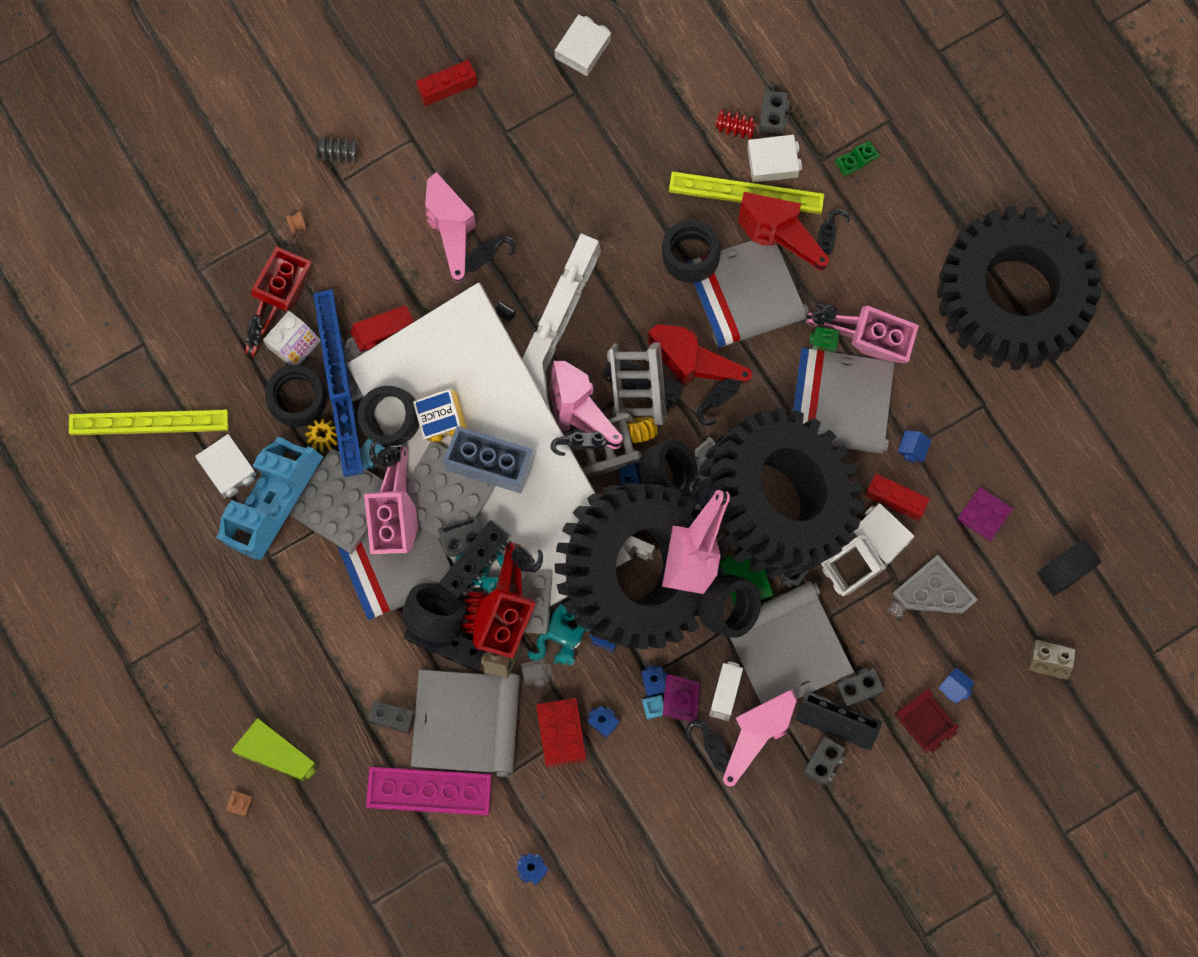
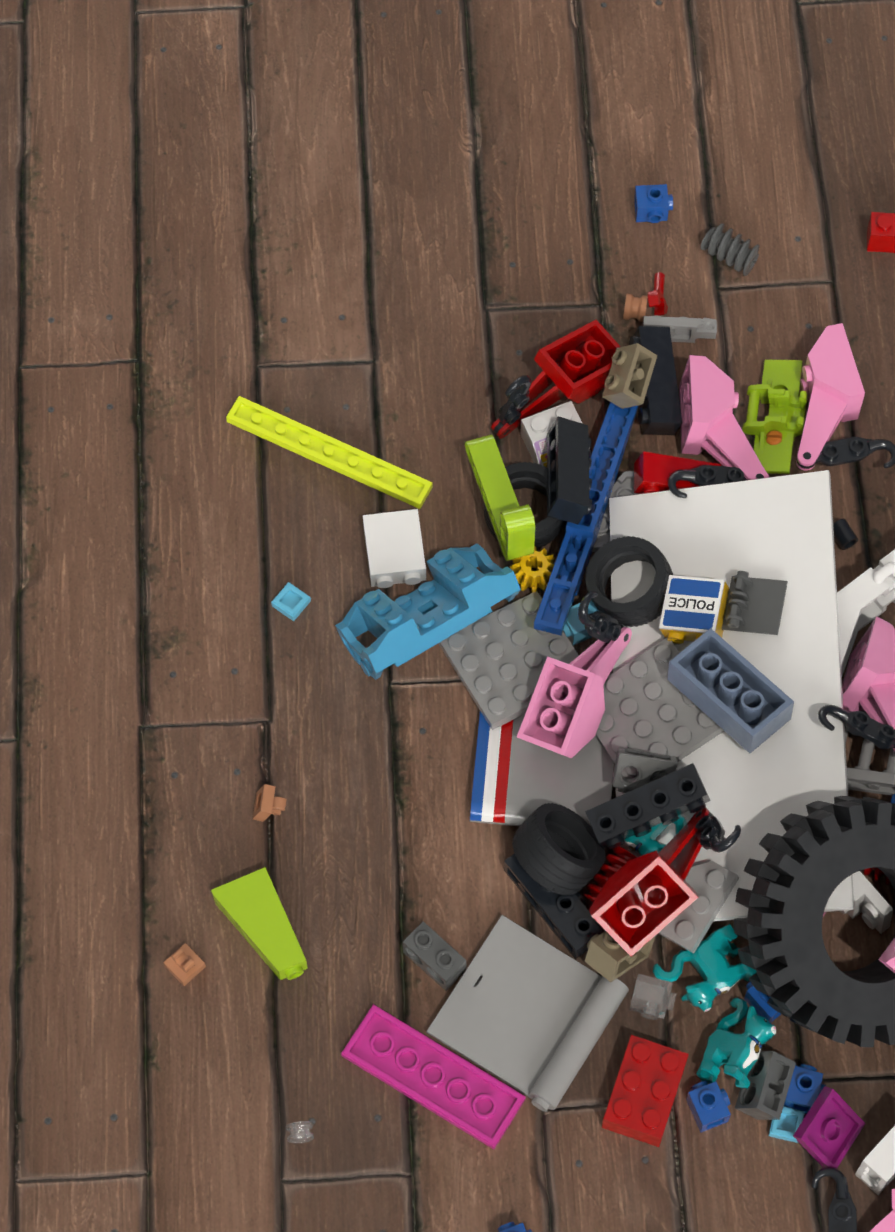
camera: 30 degrees right, 10 degrees down
(178, 535) = (291, 601): none -> medium azure tile
(235, 675) = (267, 804): none -> nougat tile
(269, 142) = (652, 203): none -> blue brick
(297, 418) = (511, 522): none -> lime beam
(306, 210) = (656, 298): none -> red bar
(312, 362) = (568, 470): none -> black brick
(318, 276) = (629, 376): none -> dark tan brick
(331, 223) = (684, 328): none -> light grey hinge
(335, 267) = (661, 407): none -> black brick
(366, 869) = (300, 1132): none -> clear bush
(385, 282) = (709, 425): none -> bright pink slope
(430, 251) = (786, 414): none -> lime piece
(475, 394) = (754, 604): none -> dark grey hinge
(602, 679) = (735, 1049): none -> teal animal
(630, 692) = (768, 1087): none -> dark grey brick

